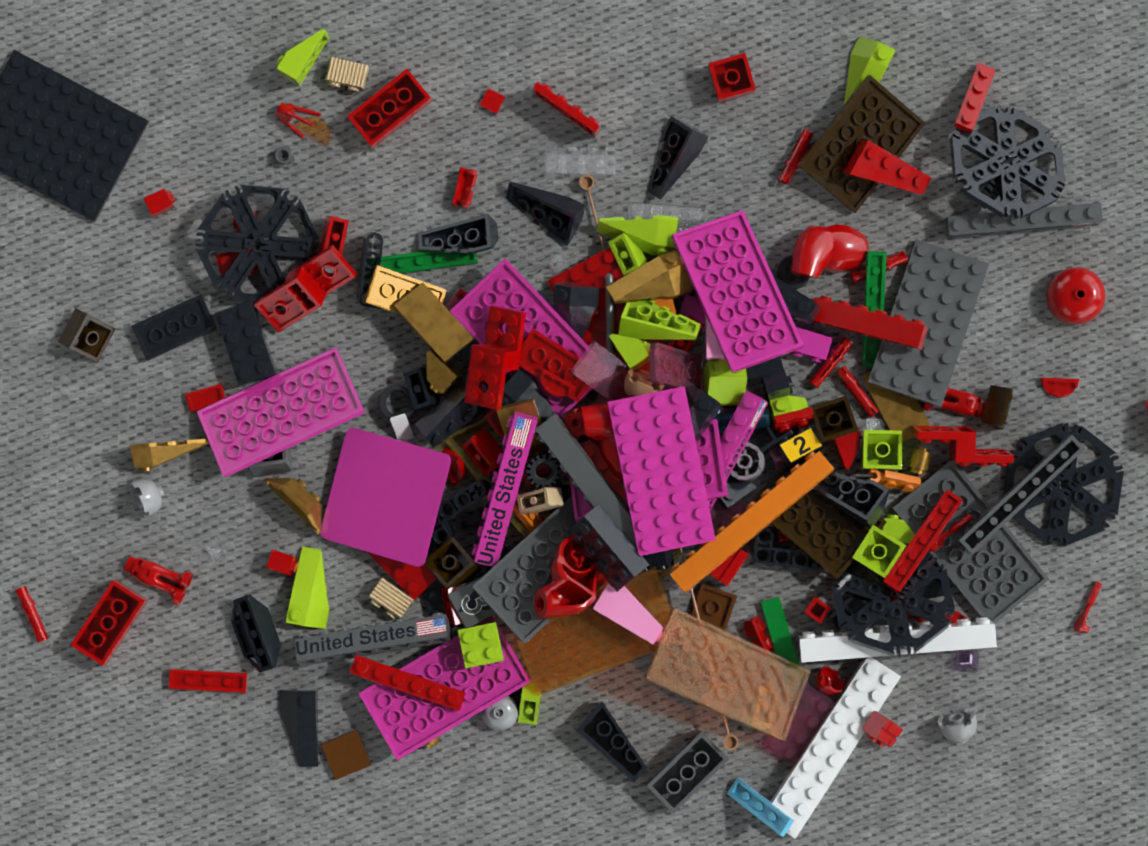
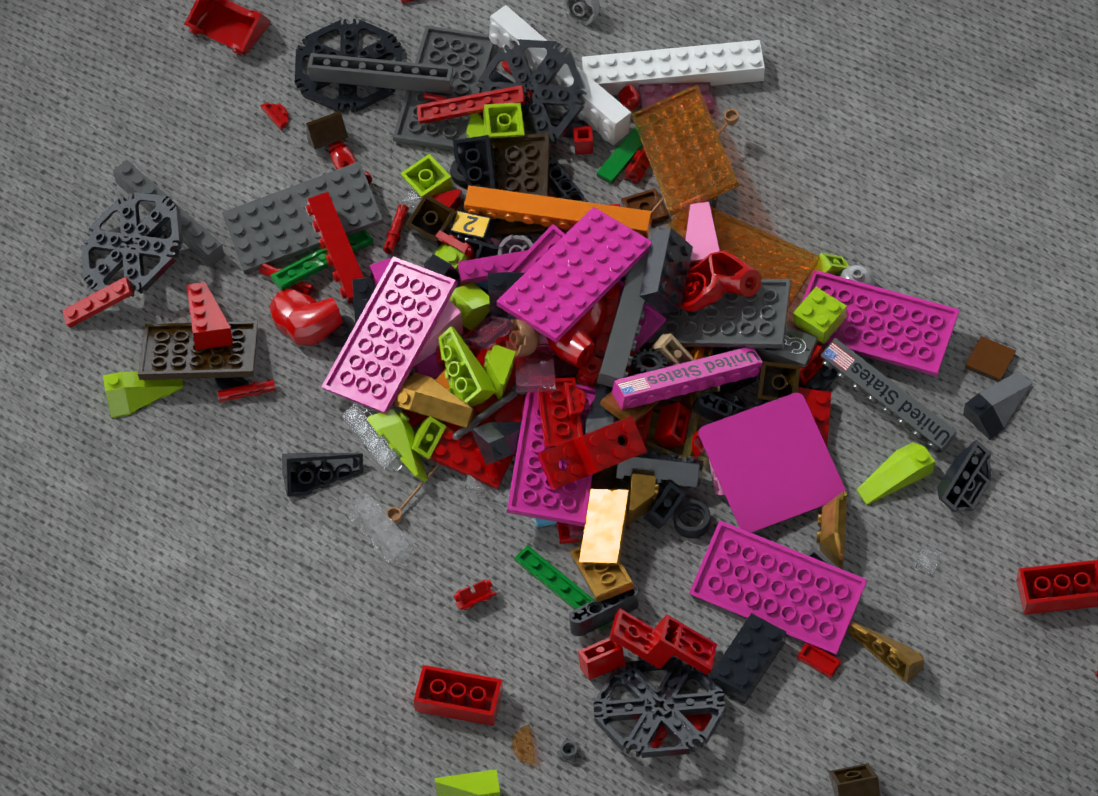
camera: 130 degrees left, 30 degrees down
(146, 496) = (939, 633): light grey cylinder -> none
(149, 573) = (995, 591): red piece -> none
(174, 327) = (785, 724): black plate -> none
(208, 680) = (1033, 489): red plate -> none
(282, 563) = (893, 502): red brick -> none
(286, 112) = (530, 775): red plant -> none
(347, 73) = (457, 752): tan brick -> none
(391, 598) = (844, 411): tan brick -> none
(402, 427) = (708, 499): white sticker -> none
(407, 682) = (896, 345): red plate -> none
(461, 237) = (516, 562): black wedge -> none
(492, 101) = (385, 631): red tile -> none
(554, 211) = (437, 517): black wedge -> none
(573, 113) = (344, 552): red plate -> none
(610, 741) = (804, 204): black wedge -> none
(687, 771) = (779, 136): dark grey brick -> none
(731, 78) = (220, 472): red brick -> none
(760, 807) = (758, 72): medium azure plate -> none
(830, 363) = (369, 259): red pin -> none
(881, 729) = (631, 43): red brick -> none
(895, 480) = (443, 158): orange plate -> none
(897, 410) = (388, 192): pearl gold tile -> none
(920, 460) = (411, 155): pearl gold brick -> none
(963, 445) = (375, 132): red bracket -> none
(1063, 297) = (198, 145): red cylinder -> none

